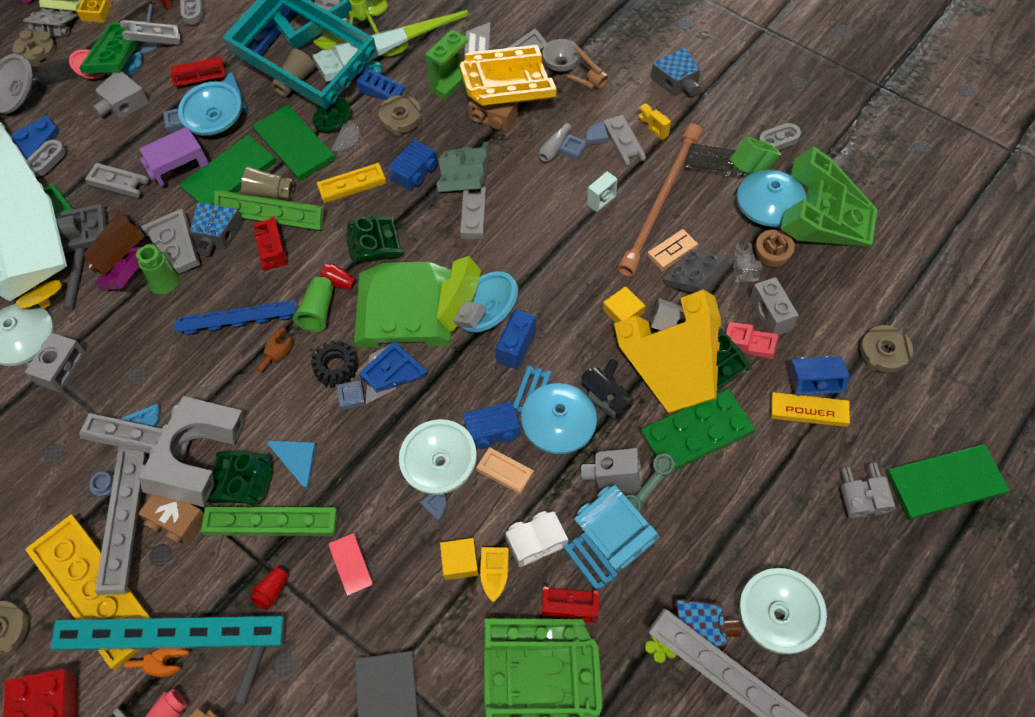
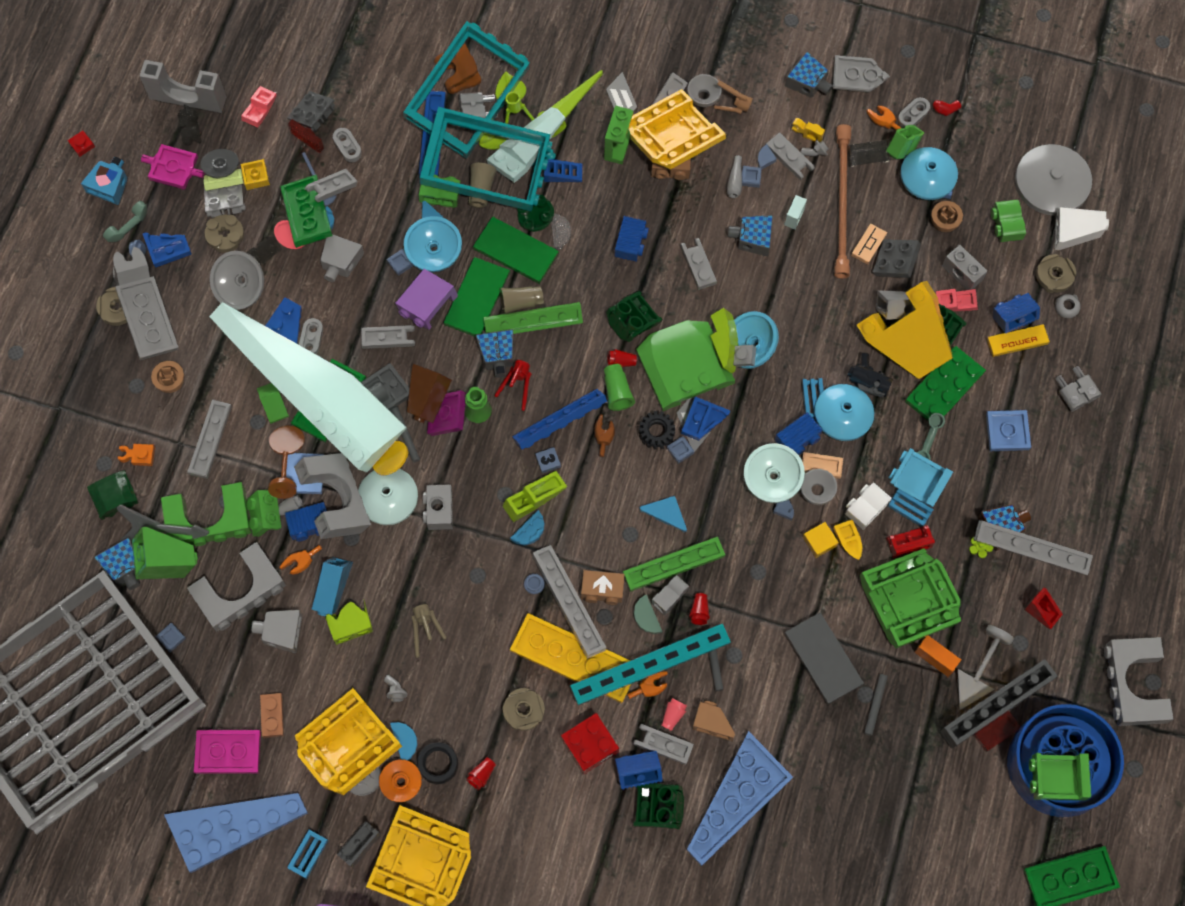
camera: 25 degrees left, 10 degrees up
(125, 434) = (541, 540): light grey tile -> none
(161, 386) = (534, 496): none -> lime slope
(174, 240) = (469, 372): light grey wing -> none
(188, 421) = (589, 558): light grey arch -> none
(197, 71) = (394, 209): red piece -> none
(201, 355) = (548, 460): none -> sand blue tile
(203, 572) = (645, 616): none -> sand green tile
(224, 255) = (518, 372): none -> red plant
(240, 477) = (634, 542): dark green slope -> none
(243, 557) = (670, 595): none -> light grey leg
(246, 72) = (438, 196): none -> bright green brick
(270, 244) = (550, 349): red hinge -> none
(350, 564) = (747, 571): coral slope -> none
(351, 182) = (585, 271): yellow tile -> none
(400, 124) = (590, 203): dark tan plate -> none
(463, 168) = (672, 227): sand green slope -> none
(485, 481) = (825, 480): none -> light grey piece
(515, 339) = (785, 362): blue brick -> none
(546, 199) = (753, 234): none -> torso
(615, 468) = (909, 433): light grey torso -> none
(623, 305) = (853, 306): yellow piece -> none
(658, 140) = (819, 149): none -> light grey plate
(733, 86) = (857, 74): none -> light grey tile
(738, 134) = (886, 120): none -> orange hand
(745, 266) = (930, 239): clear piece -> none
(755, 511) = (1008, 430): none -> medium blue plate
(792, 596) = (1053, 481): light aqua dish -> none
(813, 139) = (945, 108): none -> red arm
(833, 205) = (981, 165): bright green wedge -> none
(847, 274) = (1008, 221): none -> bright green brick
(885, 399) = (1062, 311): none -> light grey piece
(920, 250) = (1053, 178): none -> light grey dish
(934, 306) = (1078, 226): none -> white slope
(947, 482) = (1128, 361): green tile -> none

